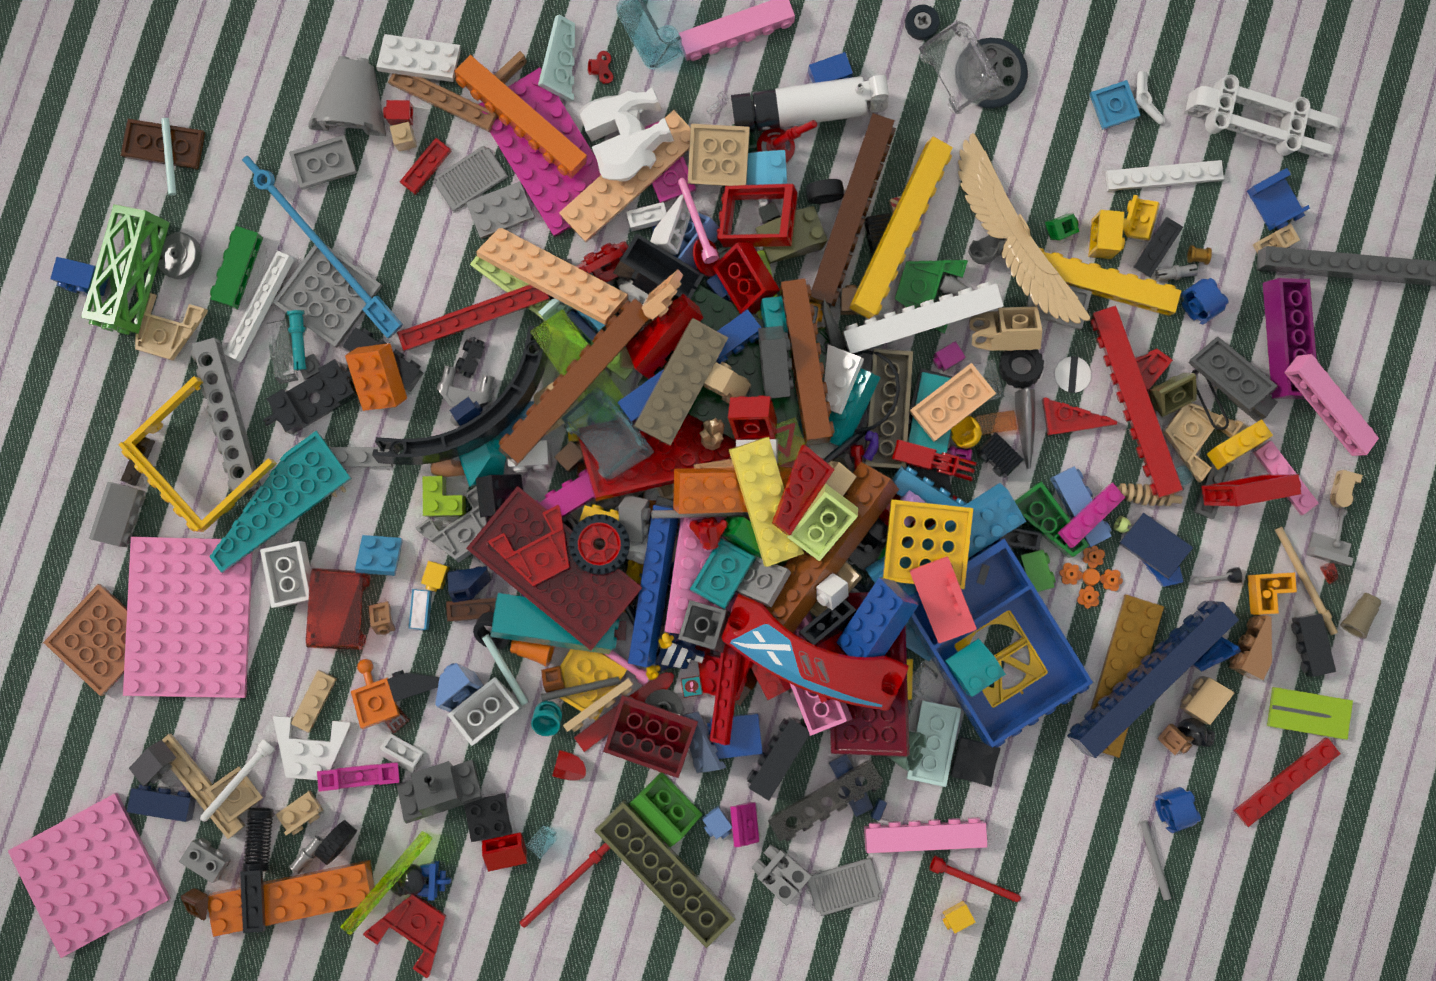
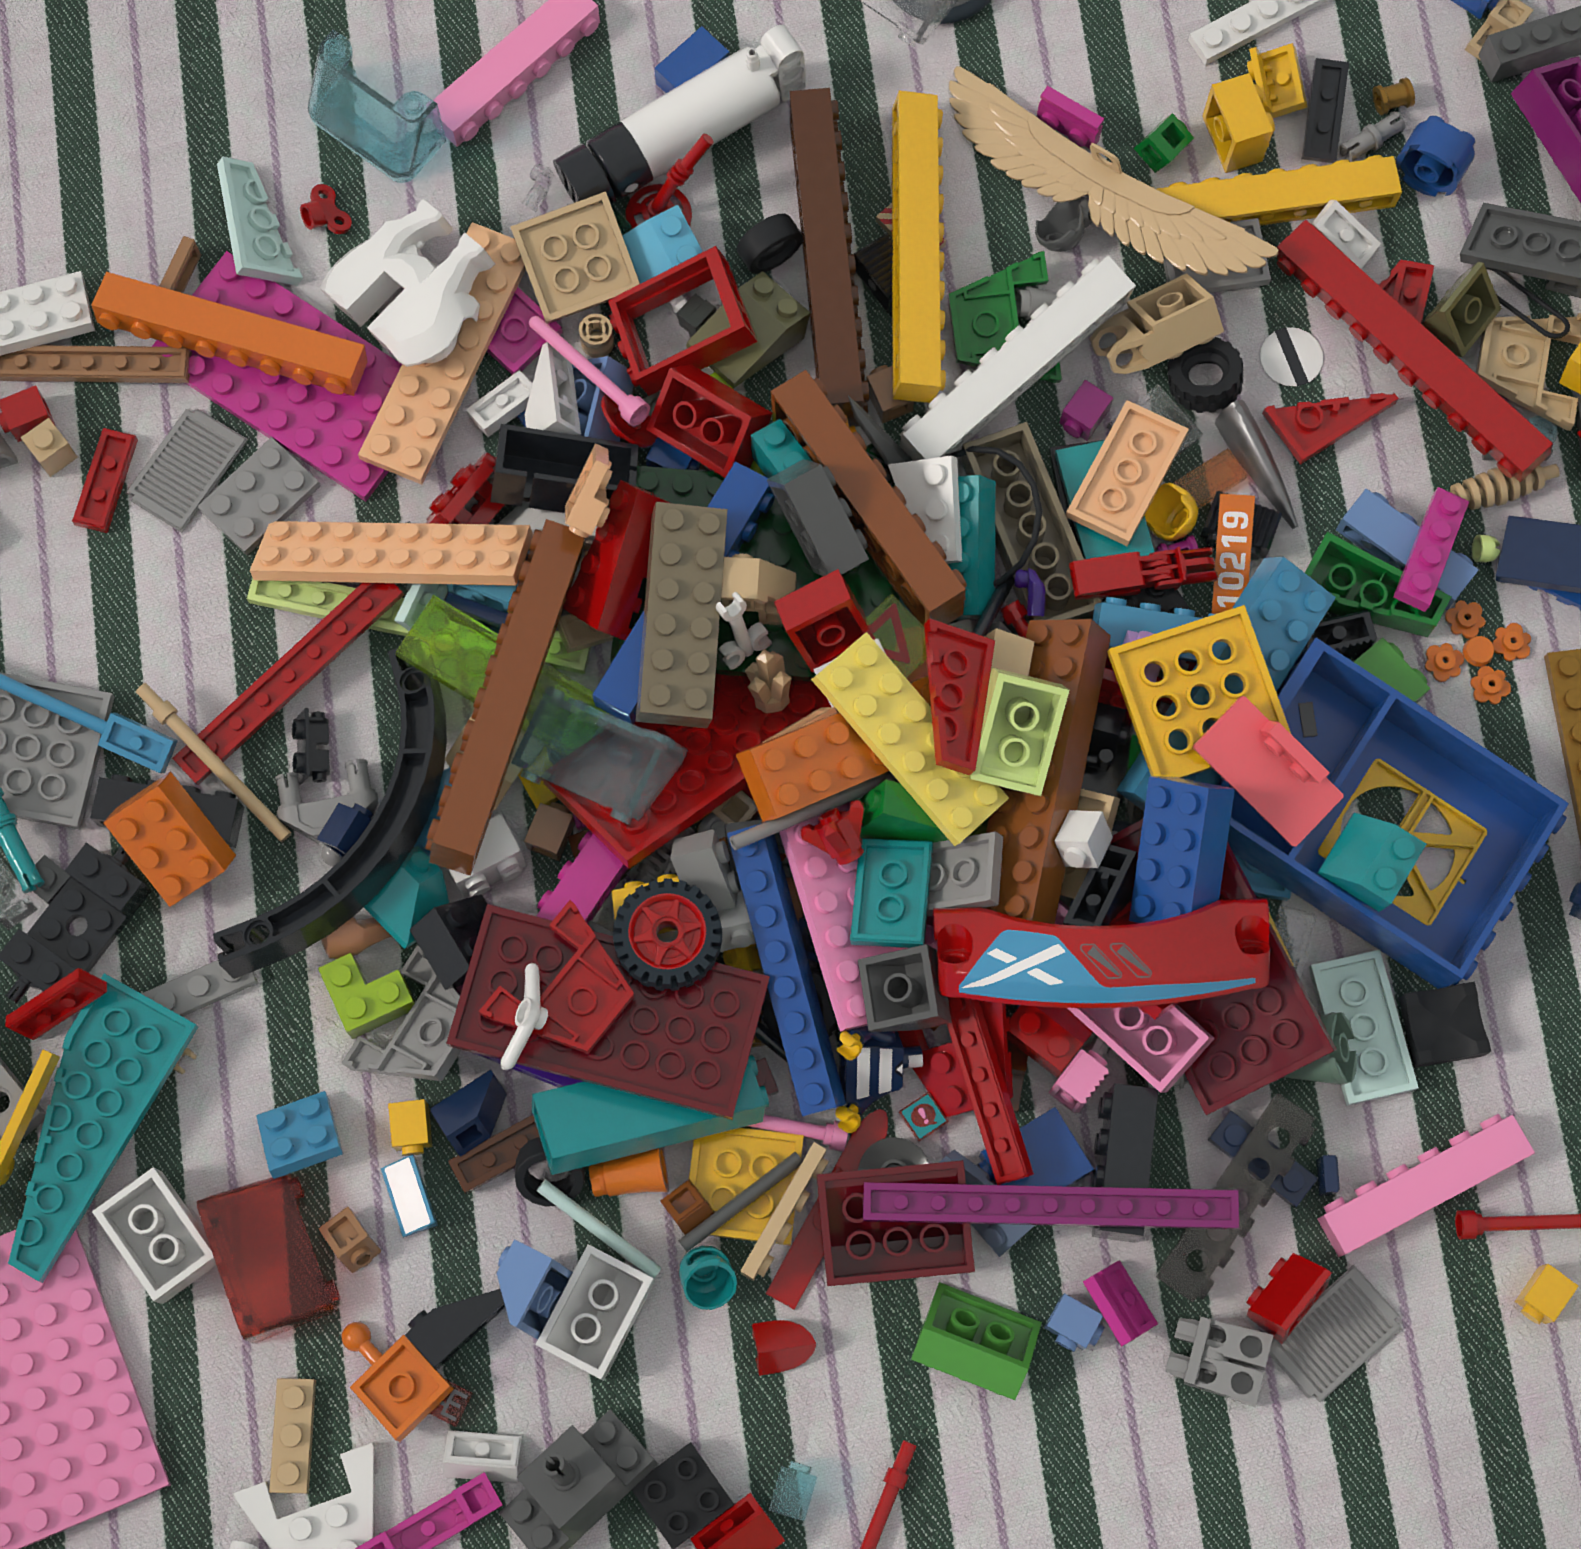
camera: 25 degrees left, 10 degrees down
(285, 436) = (56, 1004): none -> red tile
(402, 308) = (167, 714): none -> tan bar
(510, 556) = (527, 1017): none -> white piece
(665, 874) = (1028, 1448): olive brick -> none
(708, 408) = (746, 641): none -> white bar
(710, 204) = (596, 343): none -> tan wheel
(729, 766) = (1051, 1205): none -> magenta plate
(777, 706) = (1080, 1080): none -> bright pink brick
(829, 859) = (1287, 1296): none -> red slope
(987, 469) = (1232, 549): none -> orange sticker
(1014, 186) = (1069, 118): none -> dark pink plate
(1133, 321) = (1346, 233): none -> white plate

